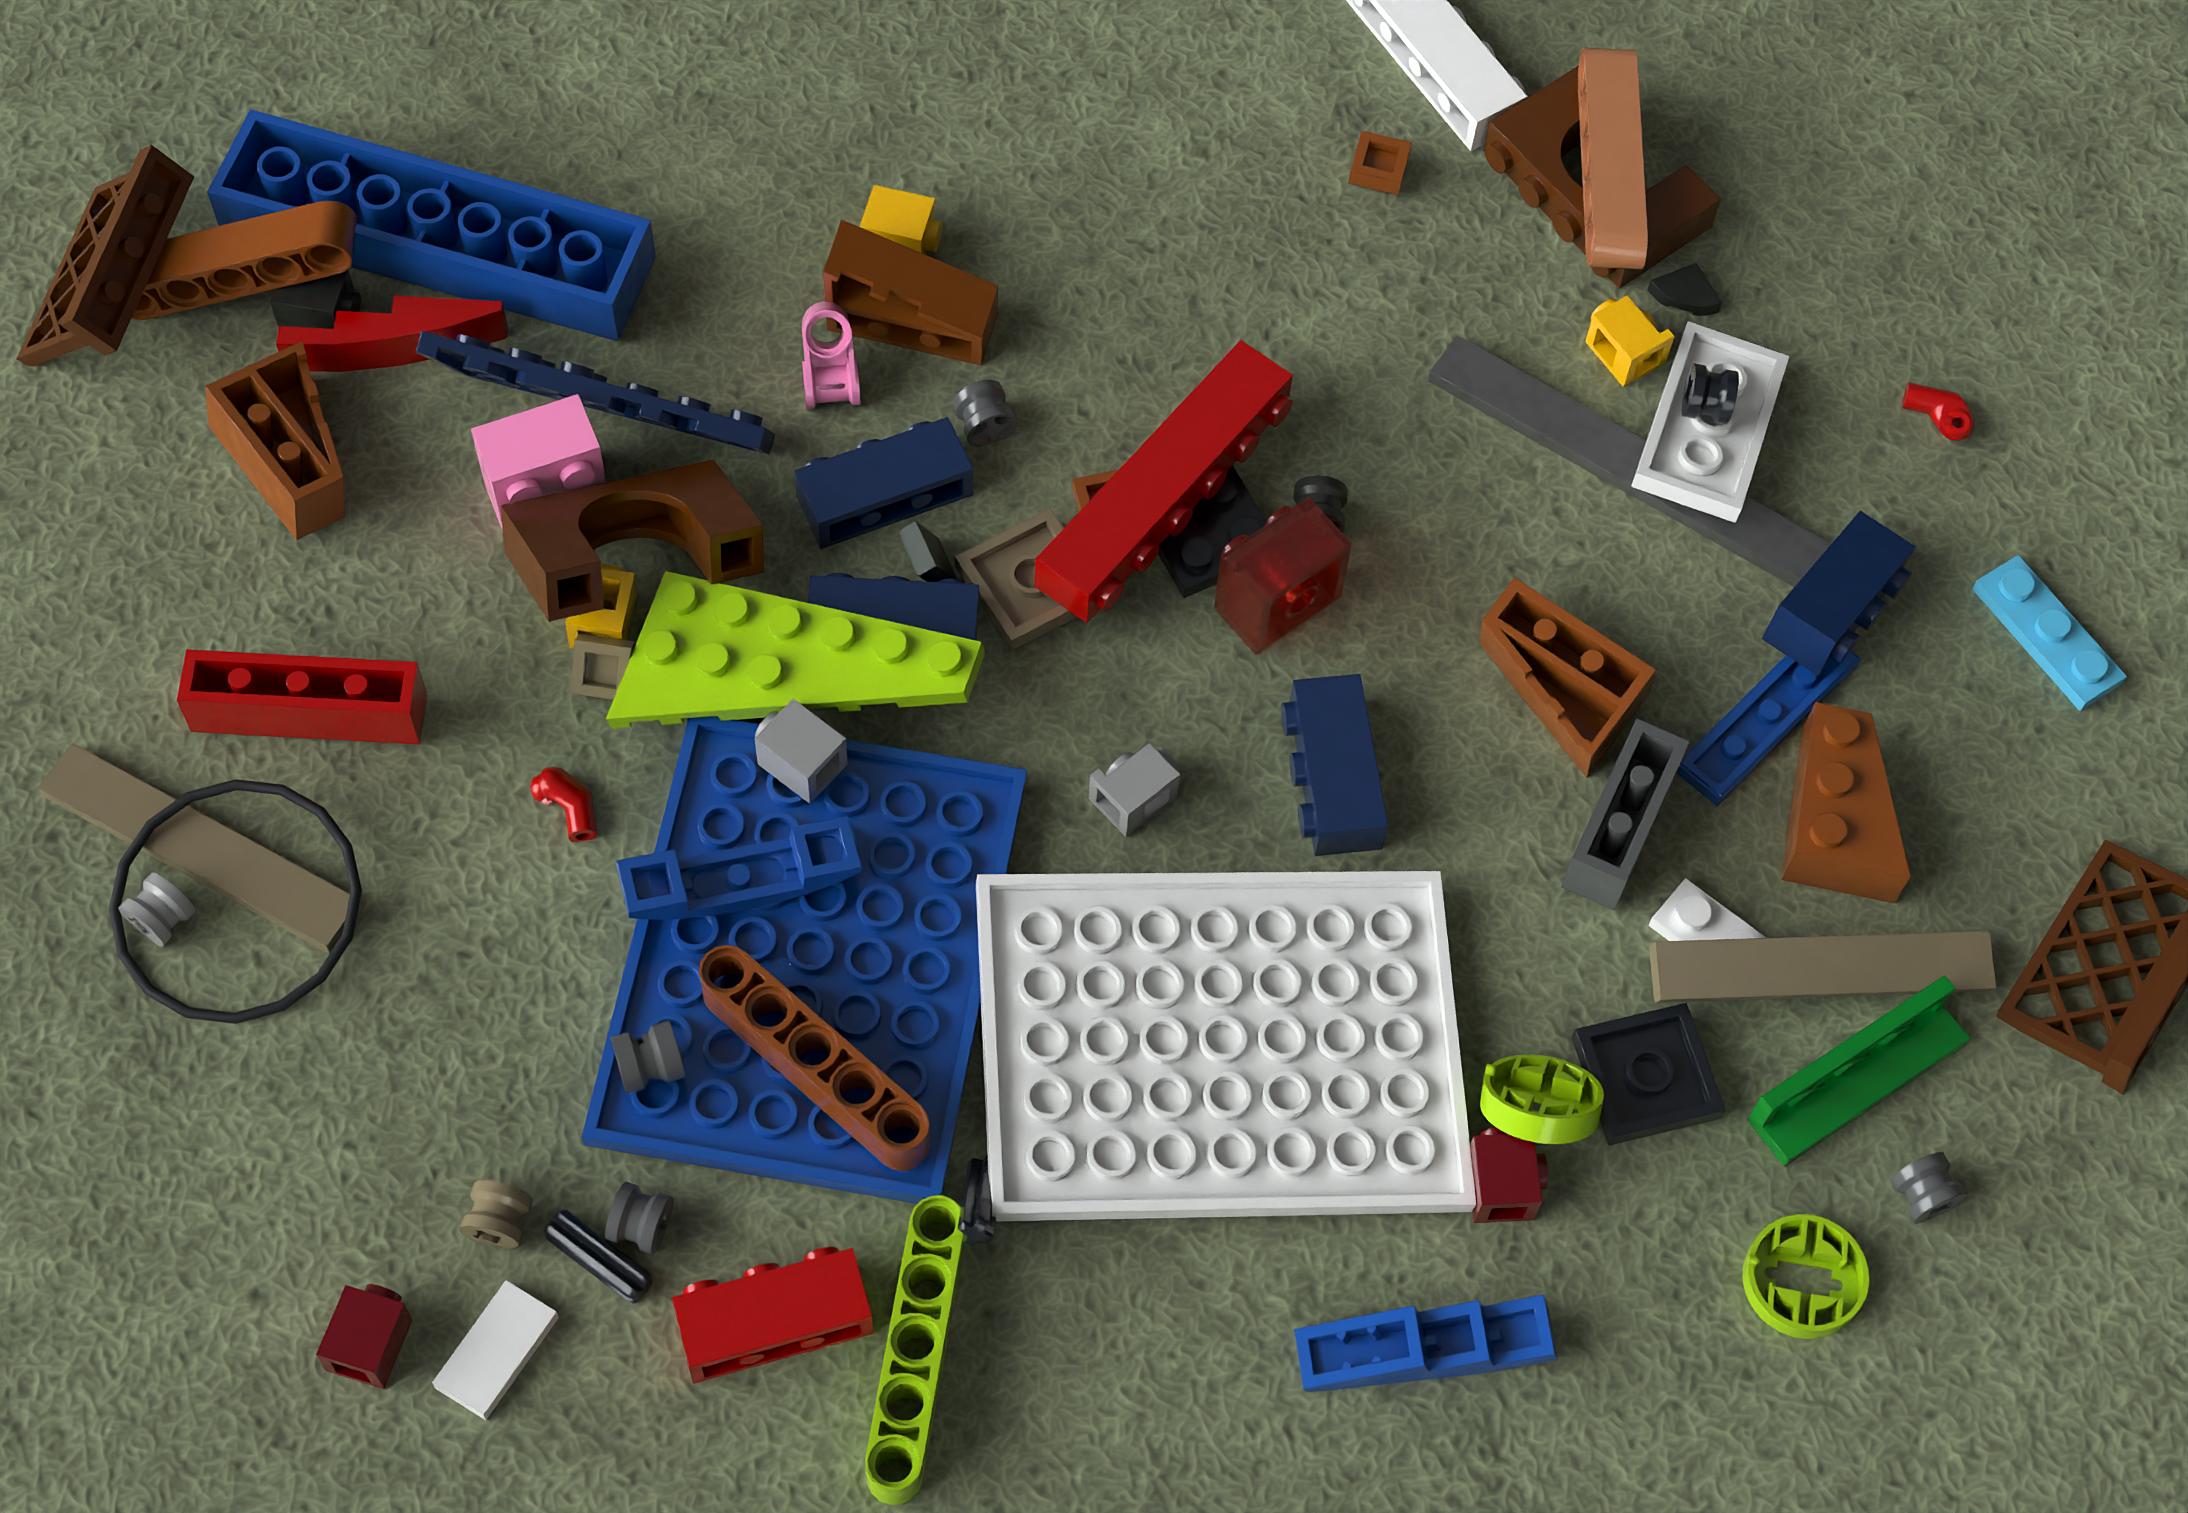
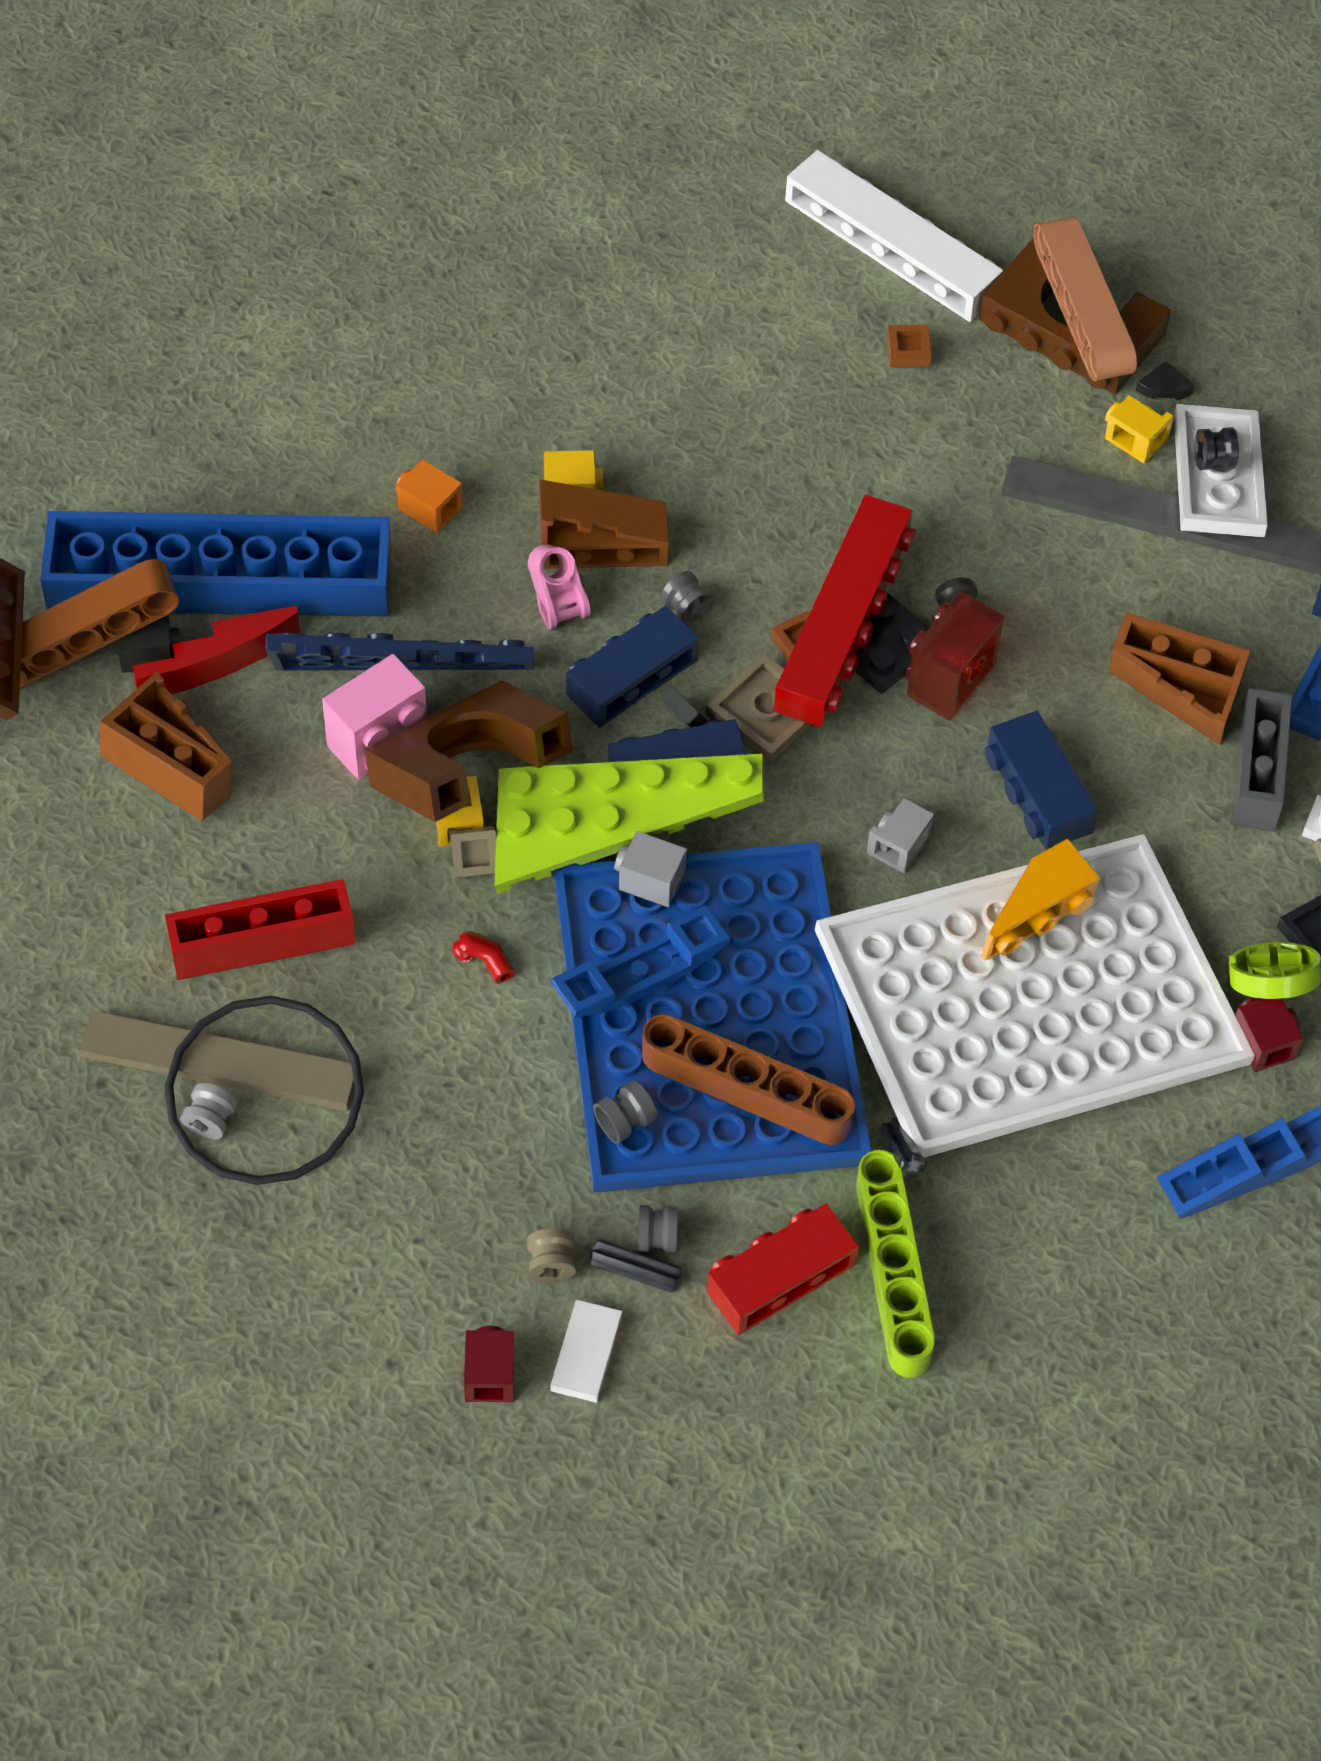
camera: 15 degrees left, 5 degrees down
(720, 204) = (428, 495): none -> orange brick
(1277, 917) = (1048, 890): none -> light orange slope

